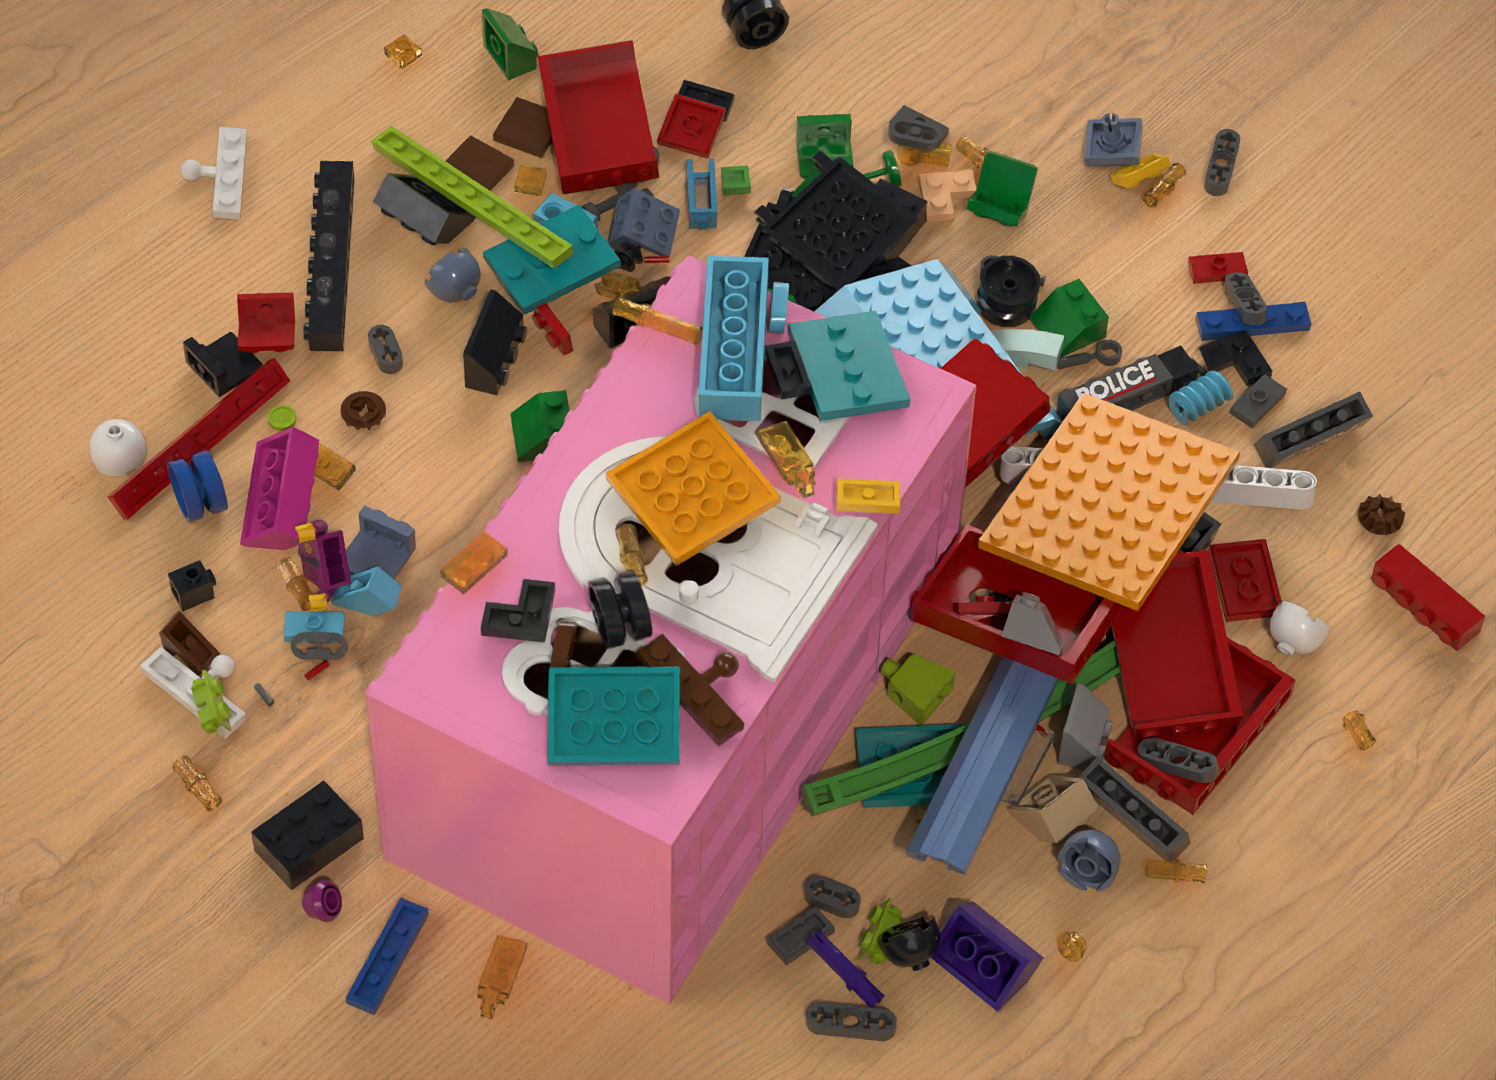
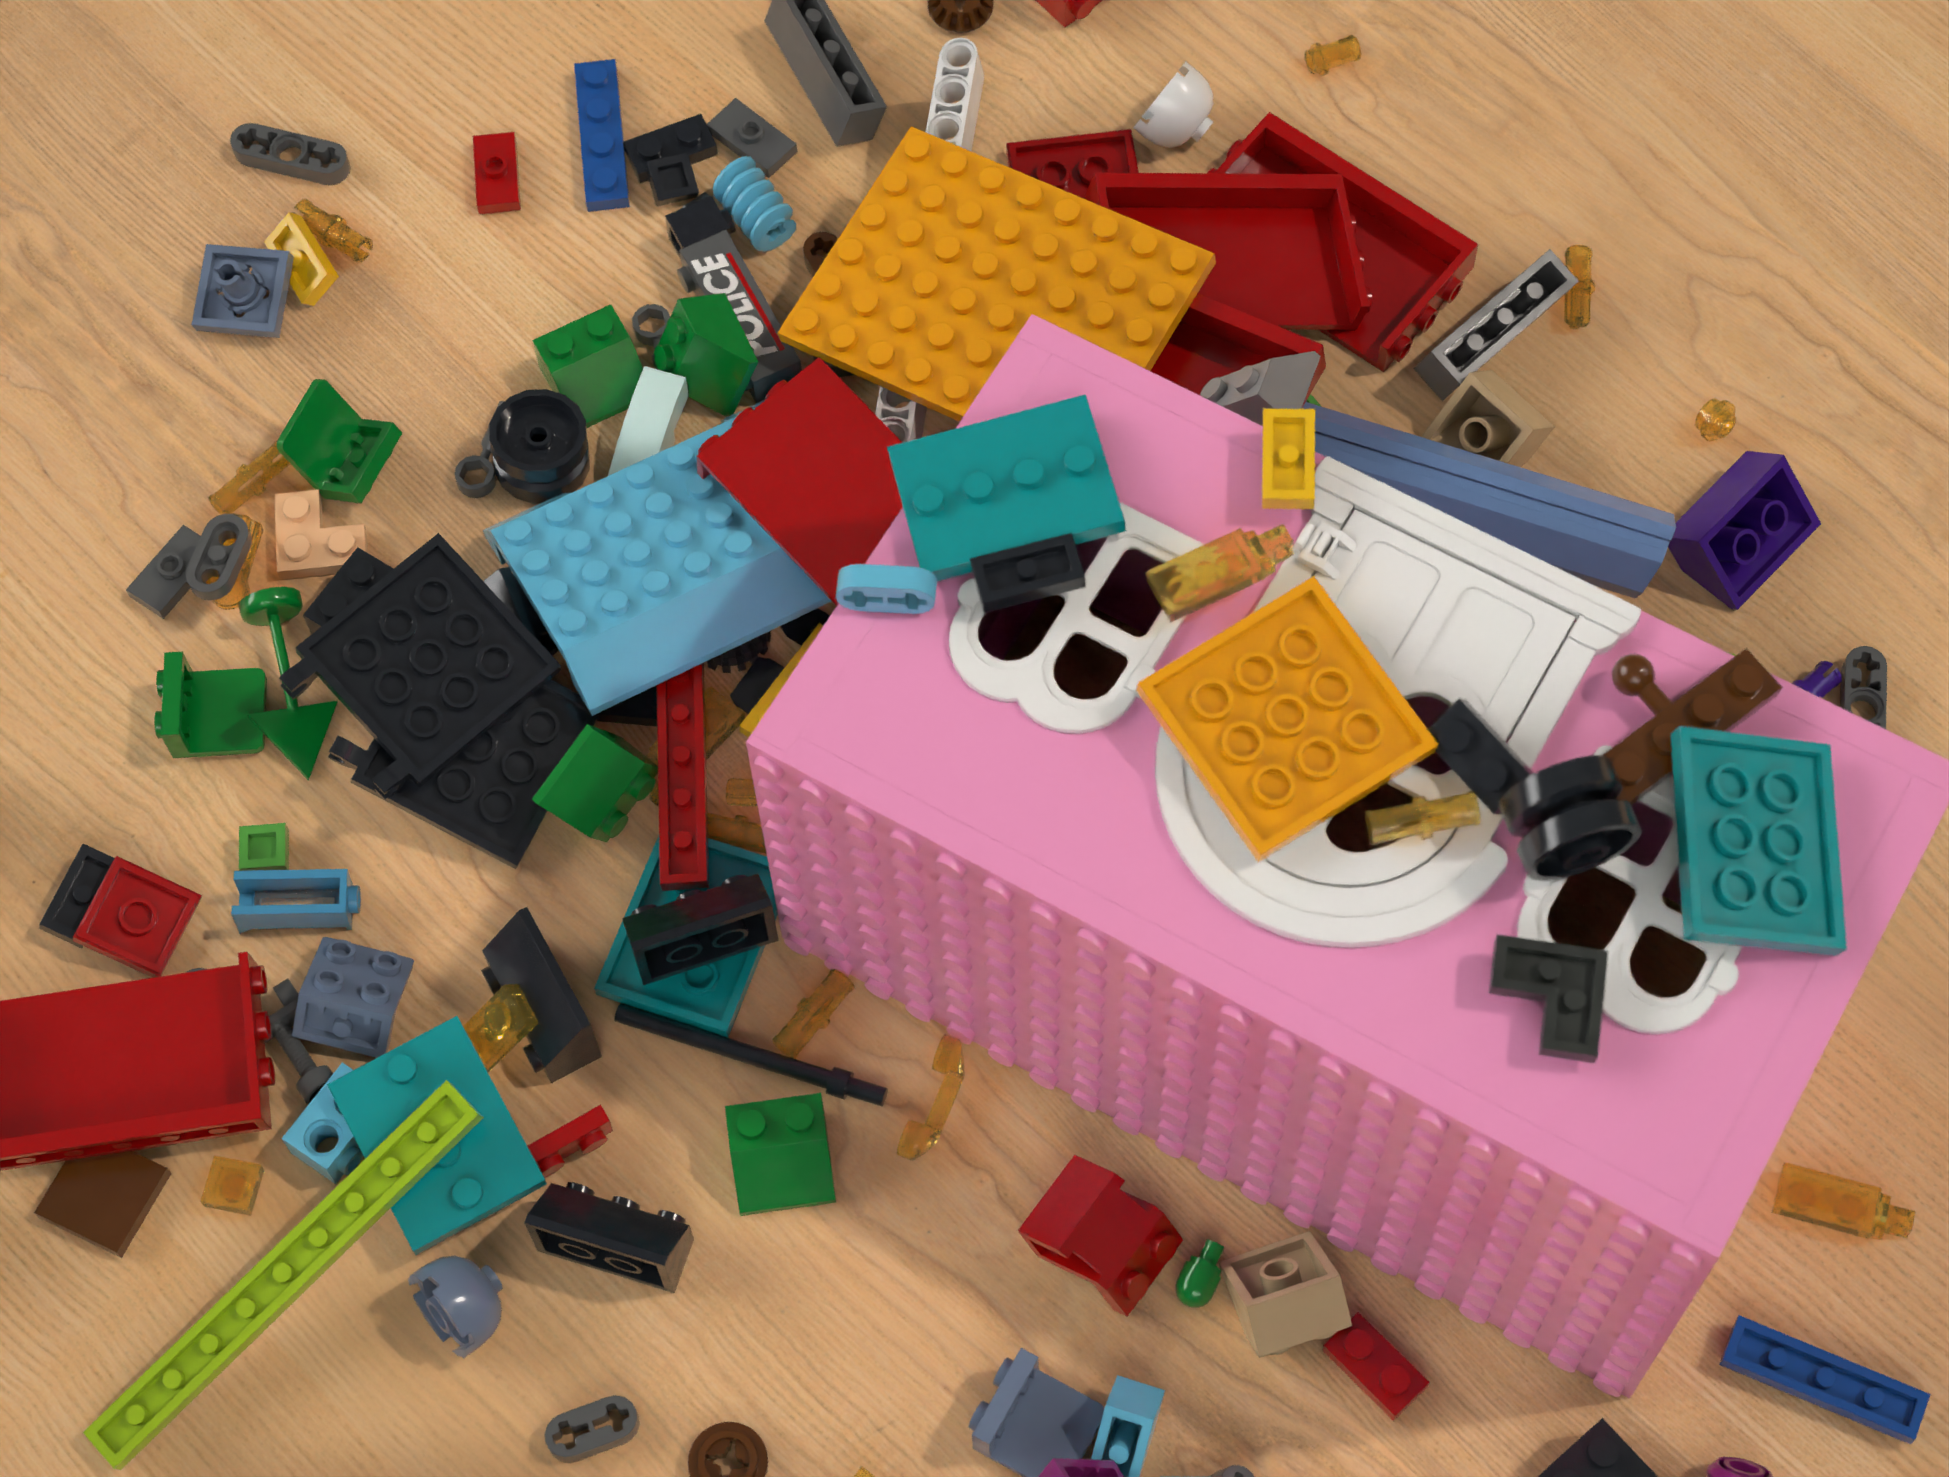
camera: 85 degrees left, 10 degrees up
(422, 208) = (285, 1372): black slope -> none
(473, 562) = (1444, 1077): clear yellow plate -> none
(481, 162) = (181, 1278): reddish brown tile -> none
(564, 644) = (1627, 921): reddish brown beam -> none
(629, 256) = (417, 1016): black wheel -> none
(646, 316) = (898, 801): clear yellow pin -> none
(657, 259) = (418, 979): red piece -> none
(671, 579) = (1478, 754): none -> black plate
(734, 338) = (971, 647): medium azure brick -> none
(912, 943) = (1738, 614): black cylinder -> none
(1079, 364) = (708, 349): none -> green slope
(1084, 730) = (1364, 385): light grey slope -> none
(1089, 860) = (1576, 382): sand blue cylinder -> none
(1186, 769) = (1436, 240): dark grey beam -> none
(1245, 298) = (536, 142): dark grey beam -> none

